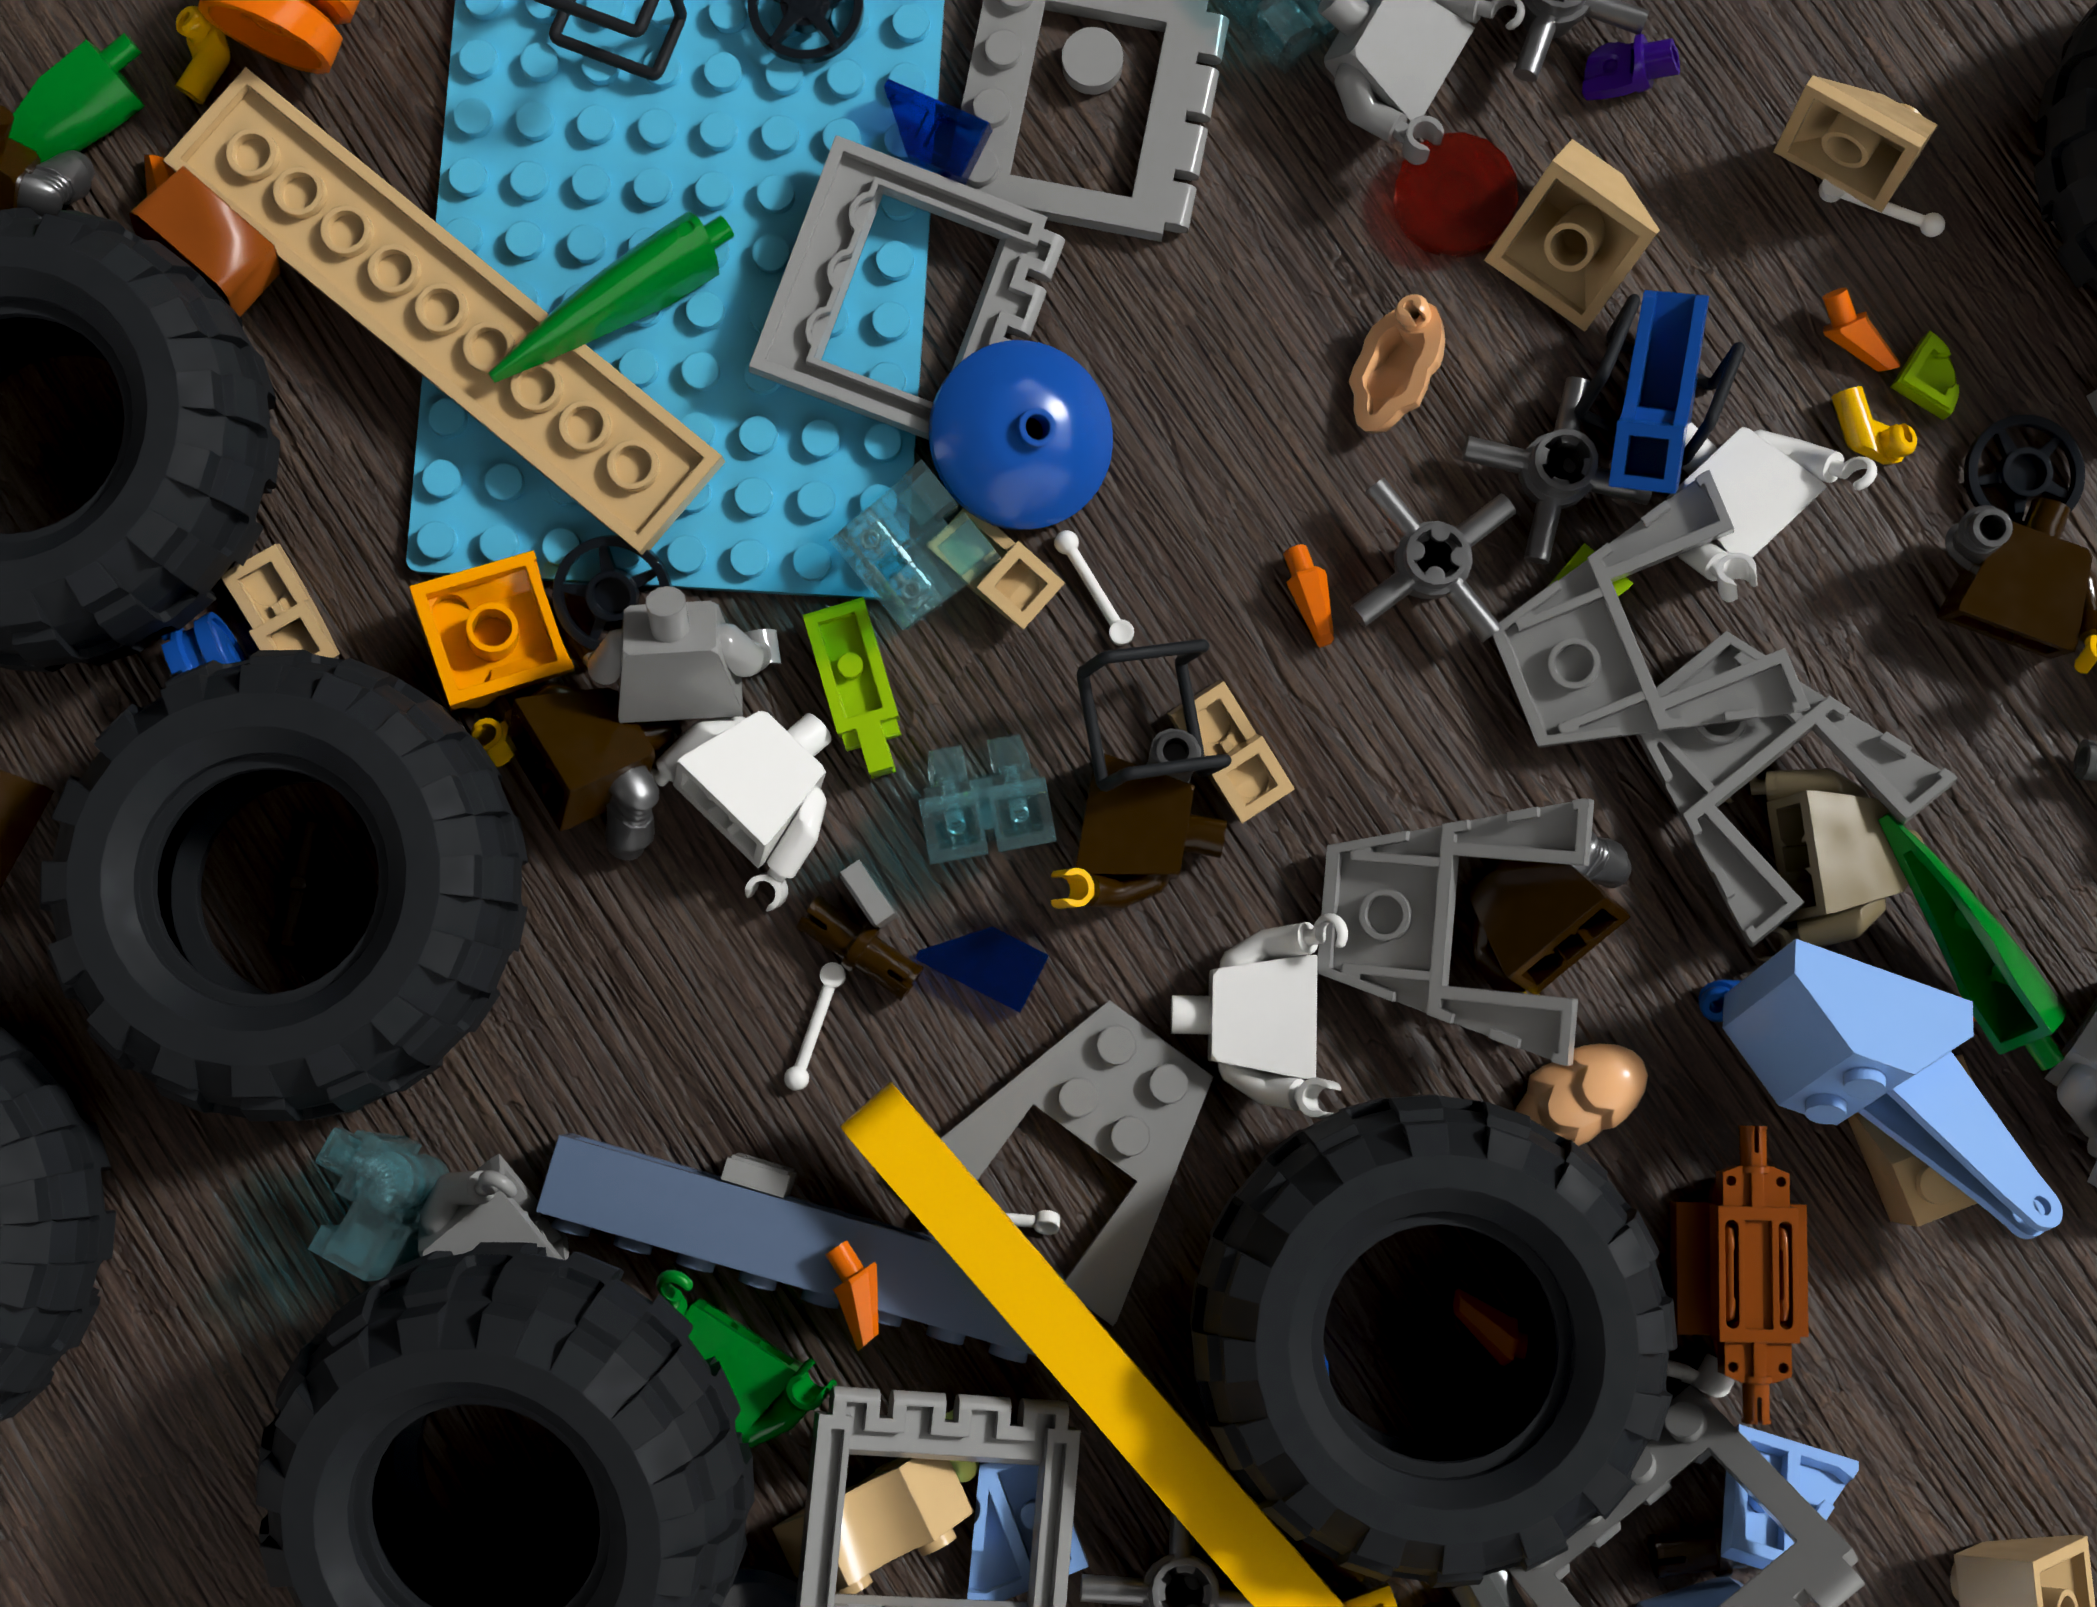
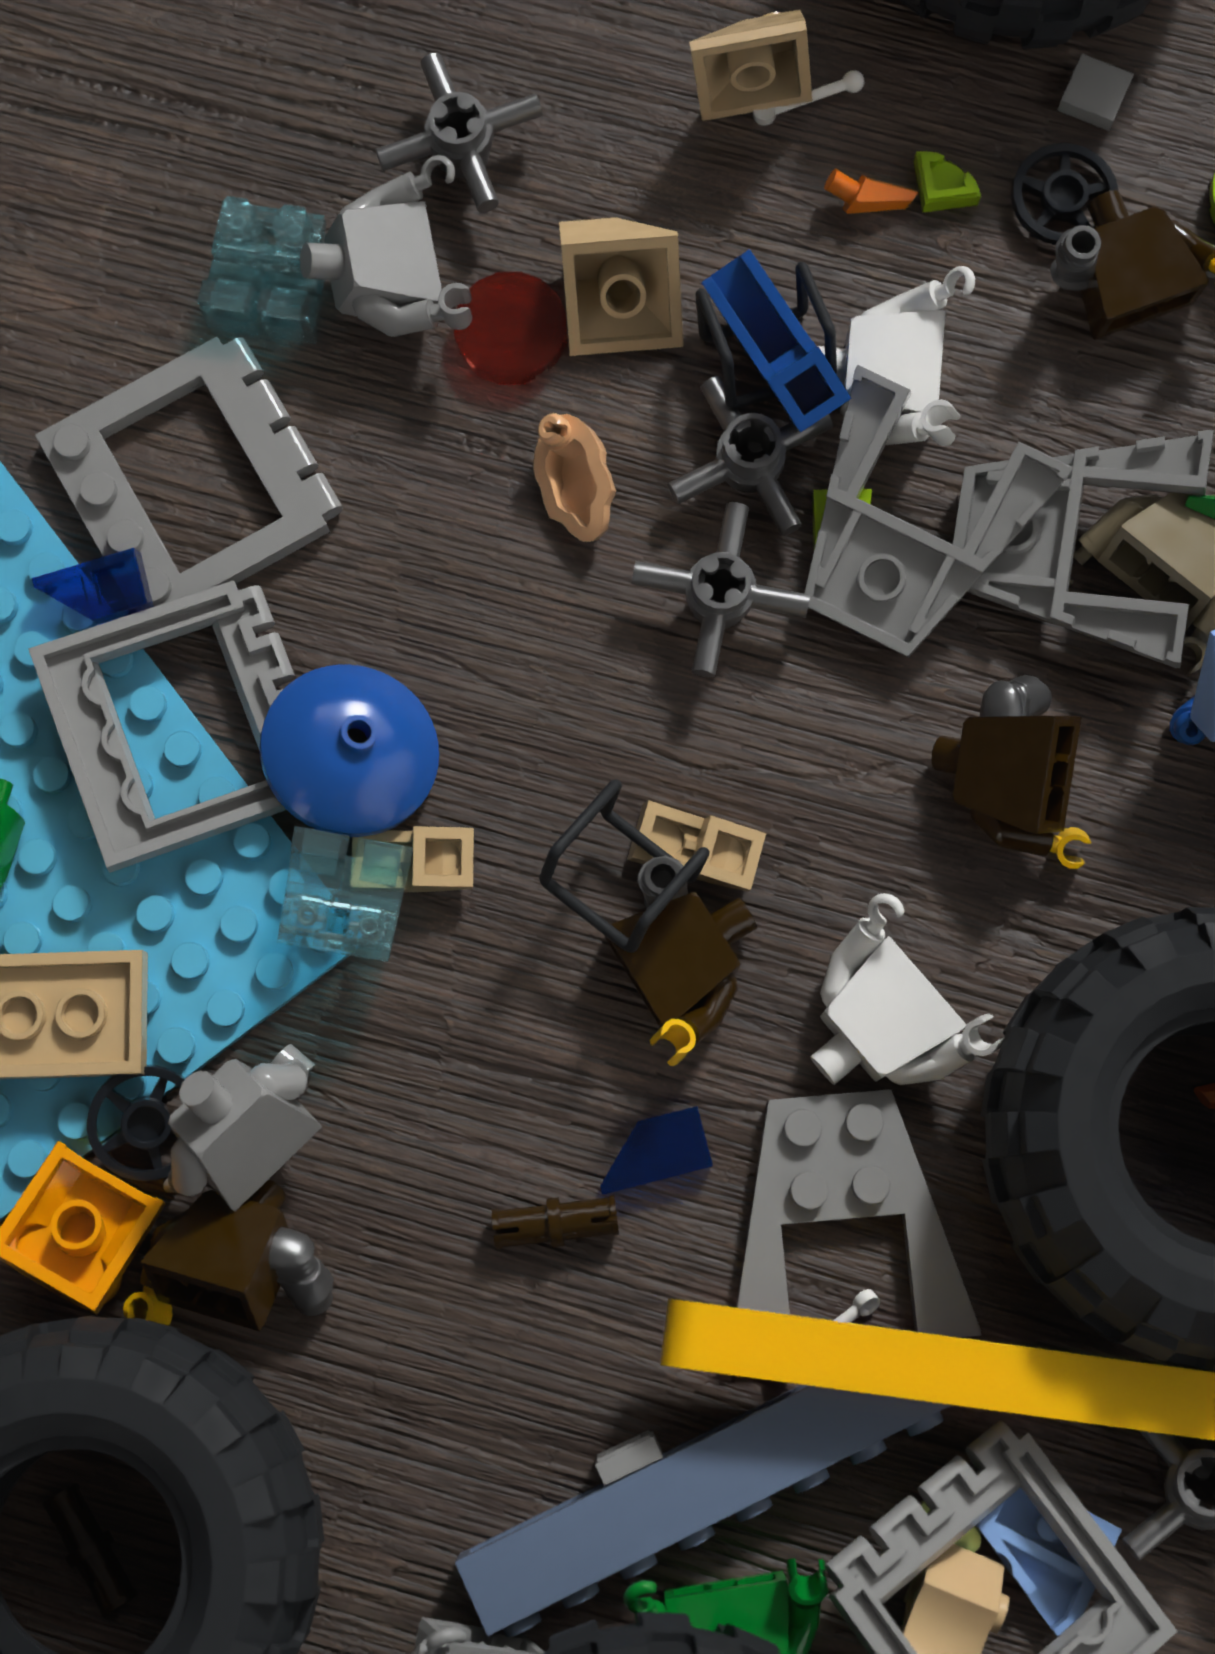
camera: 40 degrees left, 5 degrees down
(755, 788) = (376, 1172): white torso -> none
(832, 976) = (591, 1358): white hinge -> none
(855, 681) = (382, 1030): lime hinge -> none
(856, 1293) = (779, 1479): orange bar -> none
(868, 895) = (528, 1177): light grey tile -> none
(996, 806) = (551, 1049): clear light blue hips -> none
(1092, 60) = (169, 446): light grey tile -> none
(1120, 630) = (542, 829): white hinge -> none
(1311, 593) = (654, 686): orange bar -> none
(1400, 920) = (918, 852): light grey wing -> none
(1588, 1095) = (1156, 868): light nougat arm -> none
(1626, 68) = (554, 144): dark purple piece -> none
(1867, 436) = (940, 255): yellow arm -> none

